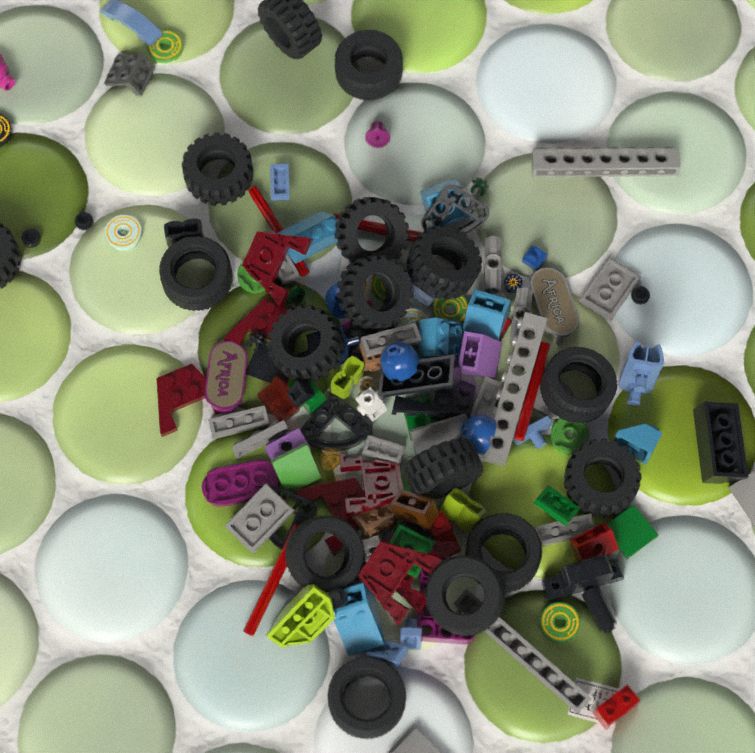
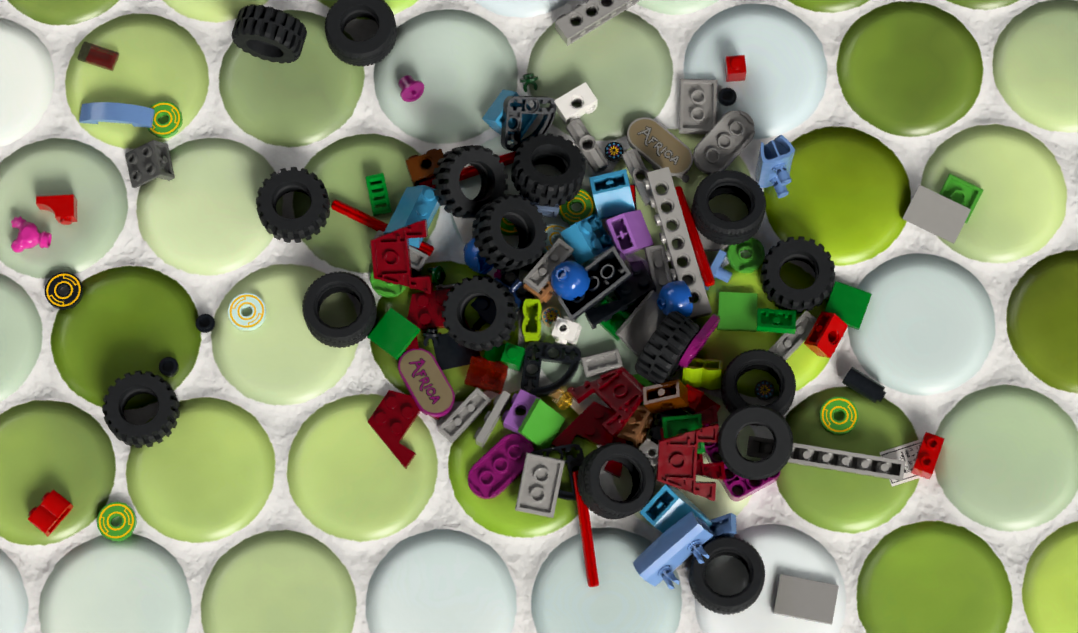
camera: 30 degrees left, 5 degrees up
(38, 66) = (61, 205): none -> red arch
(179, 230) = (298, 282): black brick -> none
(227, 320) = (393, 333): none -> green tile
(279, 182) = (356, 183): medium blue tile -> none
(299, 192) = (376, 179): none -> green slope
(300, 392) = (504, 358): black slope -> none
(303, 618) = (631, 537): lime wedge -> none
(332, 645) = (672, 549): none -> medium blue piece
(338, 198) = (415, 163): none -> reddish brown brick
(338, 597) = (652, 509): black plate -> none
(411, 635) = (728, 502): medium blue tile -> none
(476, 480) = (699, 341): none -> magenta tile
(509, 560) = (764, 390): none -> tile
(514, 219) = (580, 94): none -> white brick
(529, 478) = (737, 311): none -> bright green tile
(534, 258) = (617, 117): blue tile -> none
(582, 577) = (834, 368): black brick -> none
(612, 330) = (724, 142): none -> light grey tile
(639, 440) = (809, 224): dark azure slope -> none
(662, 275) = (735, 68): none -> red brick
(720, 442) = (873, 185): black slope -> none

